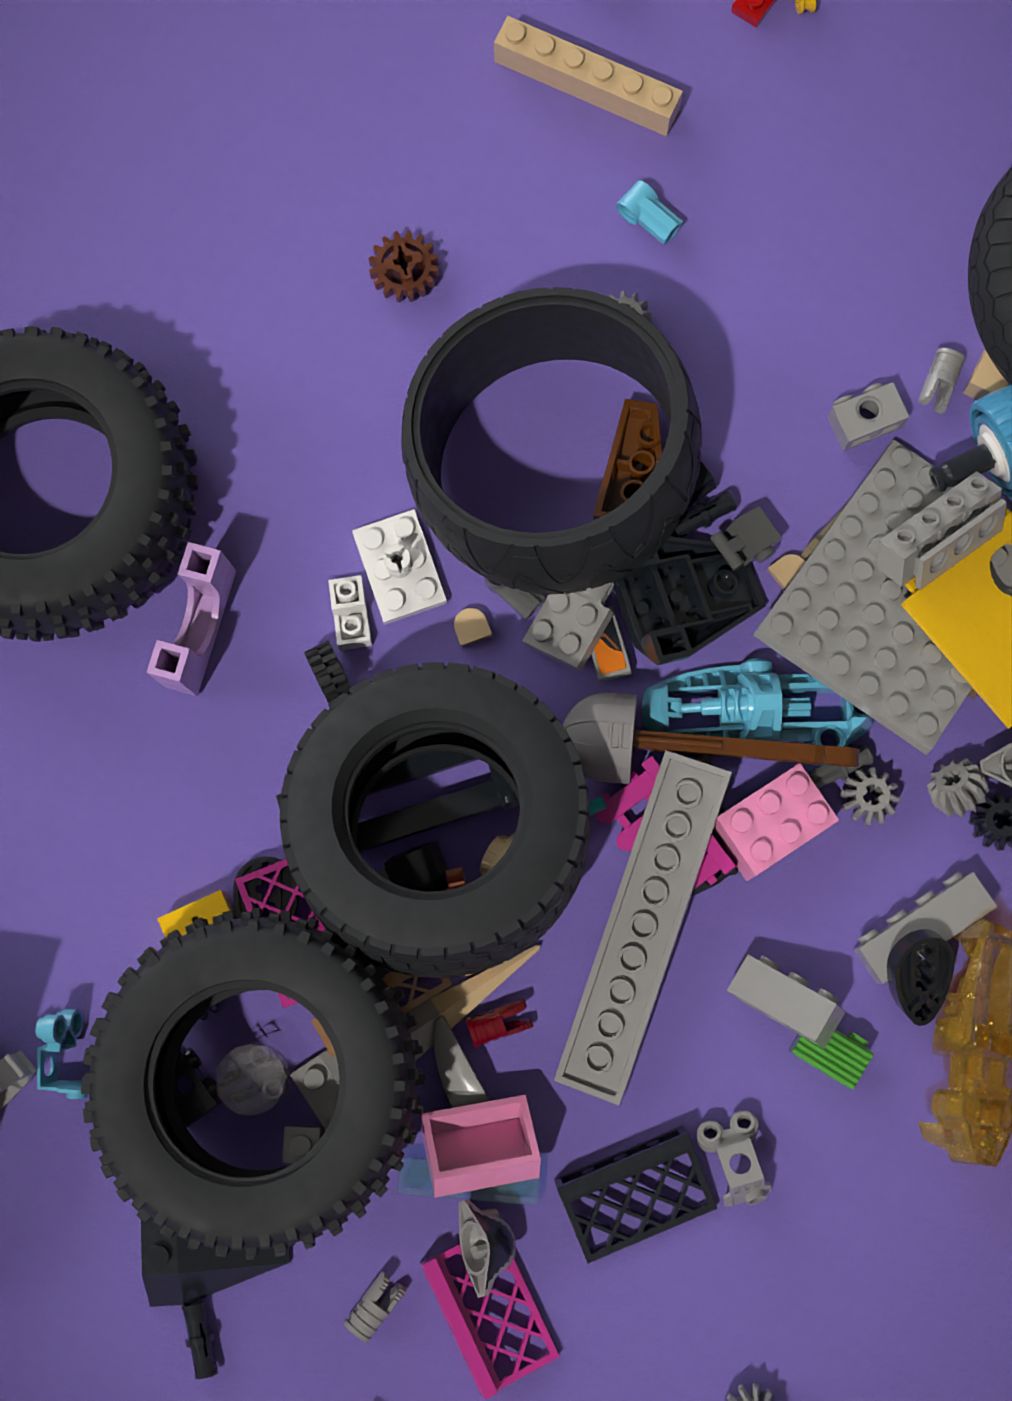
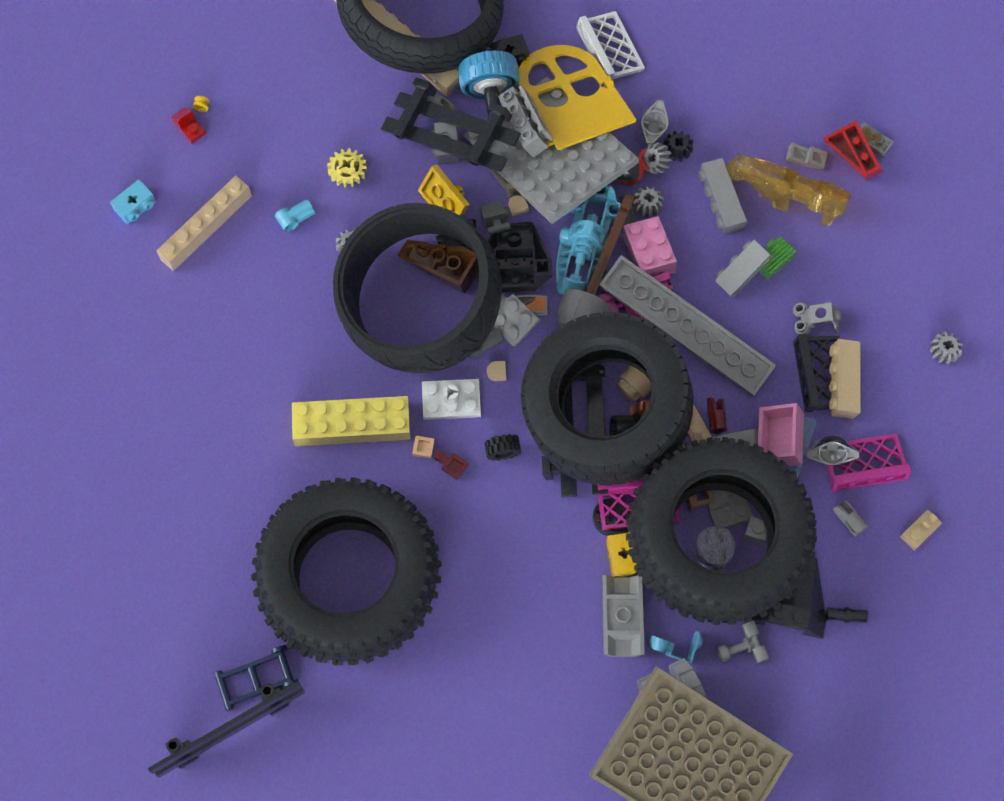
camera: 80 degrees left, 10 degrees down
(91, 952) = (623, 616): none -> light grey piece
(102, 1188) = (750, 644): none -> light grey bar
(209, 583) = (472, 522): lavender arch -> none
(282, 603) = (452, 465): none -> dark red plate
(300, 546) = (423, 447): none -> light nougat plate
(309, 417) = (350, 421): none -> light yellow brick
(350, 613) = (469, 432): white slope -> none
(389, 269) = (285, 354): copper gear -> none
(630, 1238) = (845, 379): none -> tan brick
(759, 442) = (440, 191): none -> yellow plate
(774, 278) = (347, 167): none -> light yellow gear
(899, 470) = (487, 130): none -> black fence
(917, 762) = (636, 173): none -> hat
(932, 986) = (747, 202): black piece -> none

